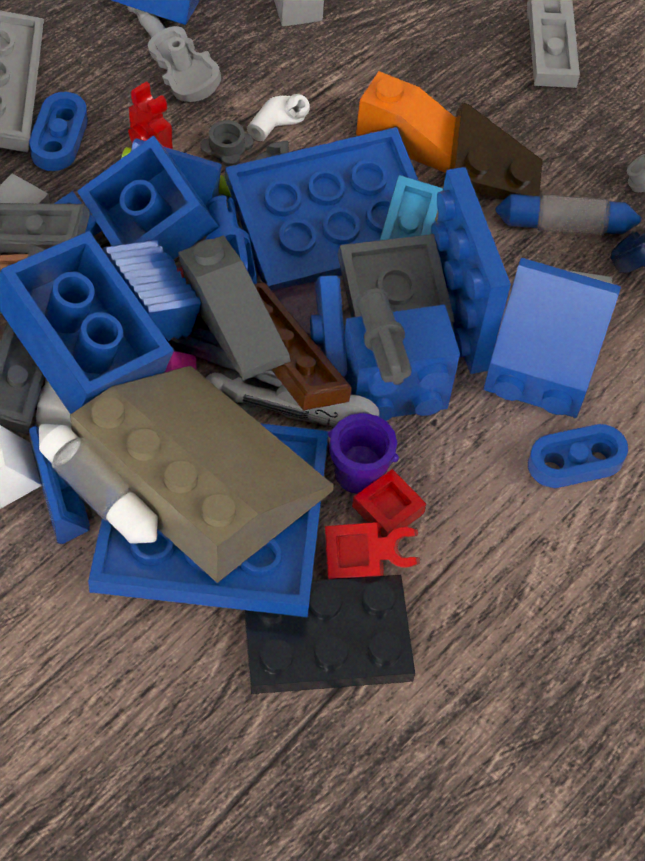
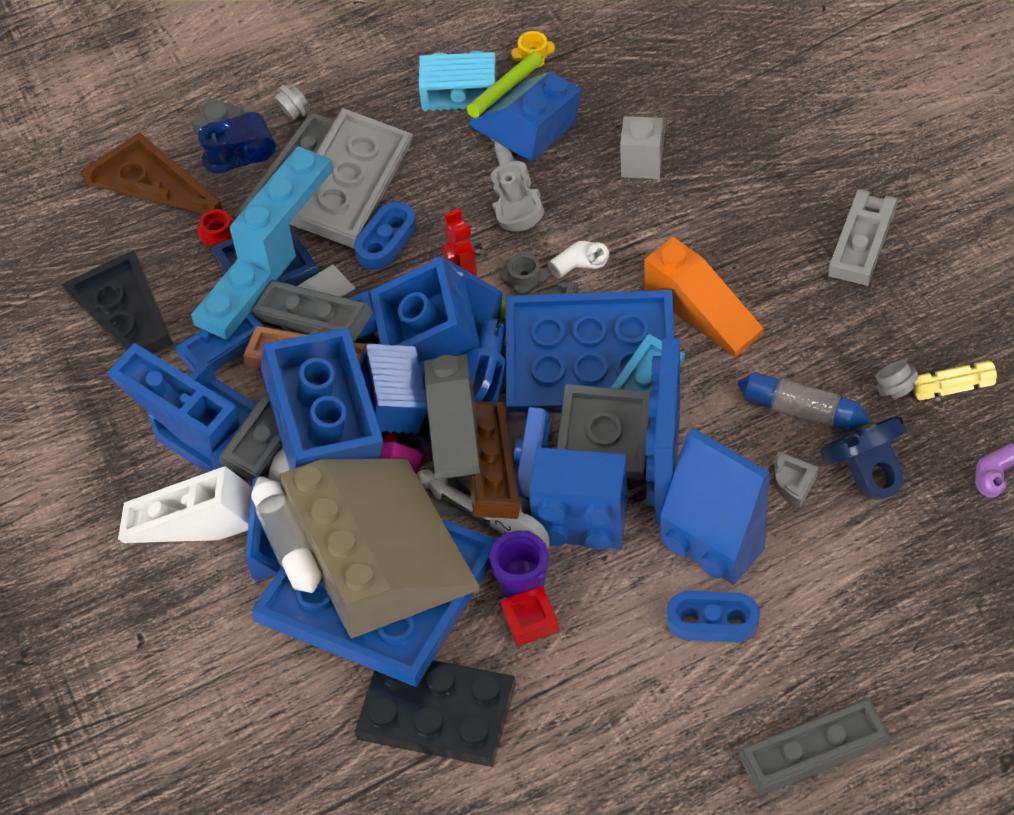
camera: 30 degrees right, 5 degrees down
(360, 550) = (489, 646): red plate -> none
(384, 336) = (555, 468): dark grey axle -> none
(492, 157) = (750, 336): dark brown wing -> none

